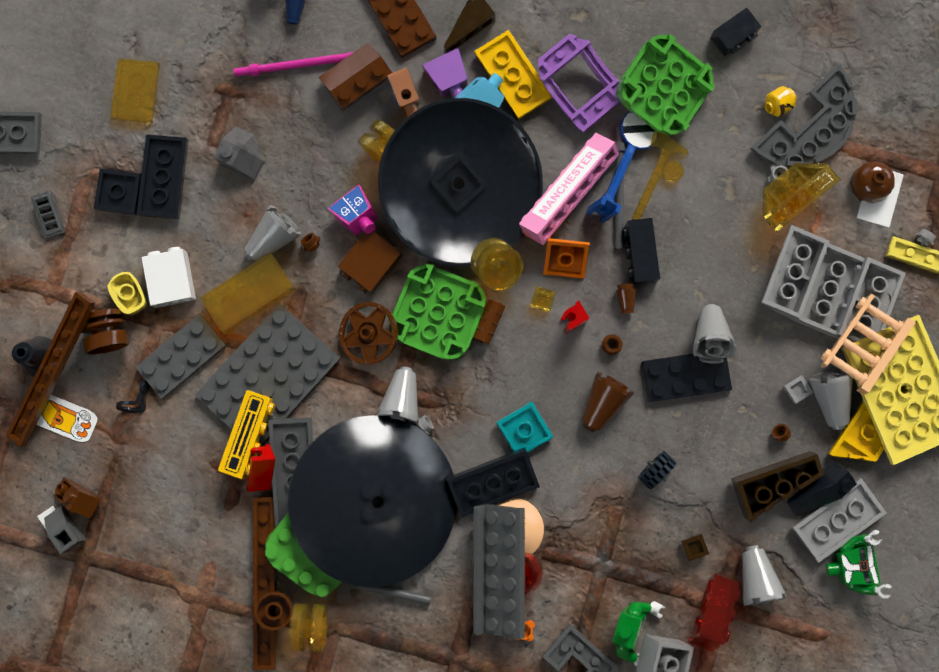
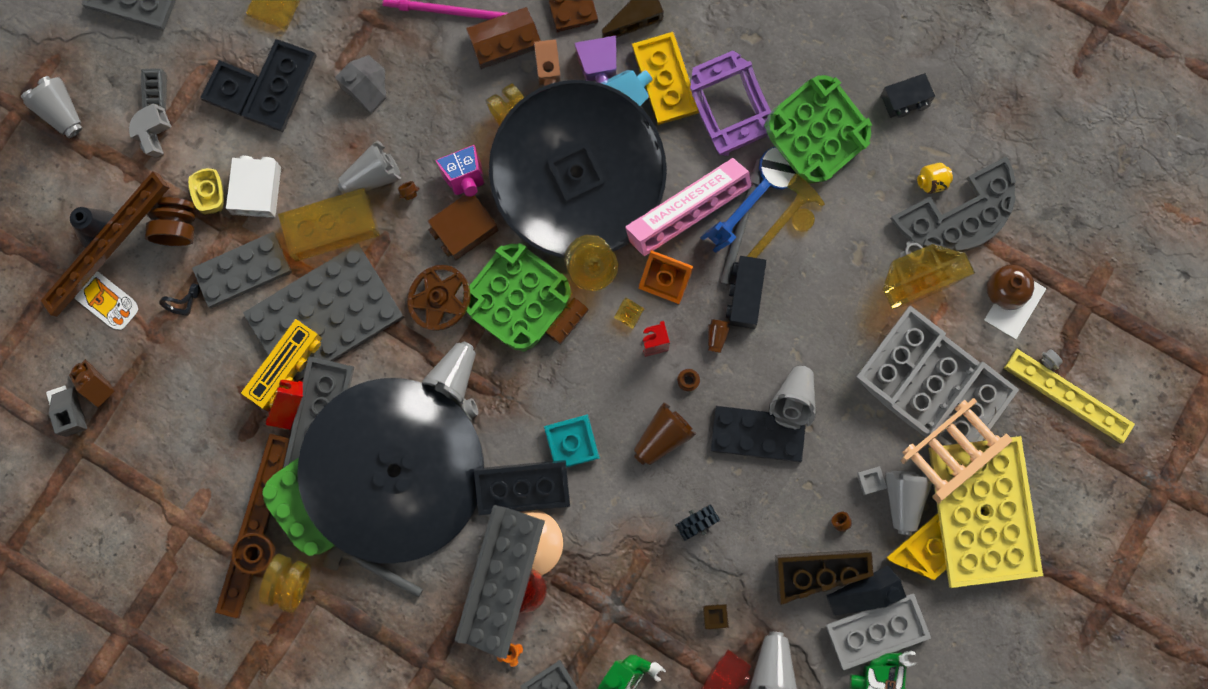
camera: 15 degrees right, 5 degrees down
(51, 250) = (146, 126): none -> light grey brick

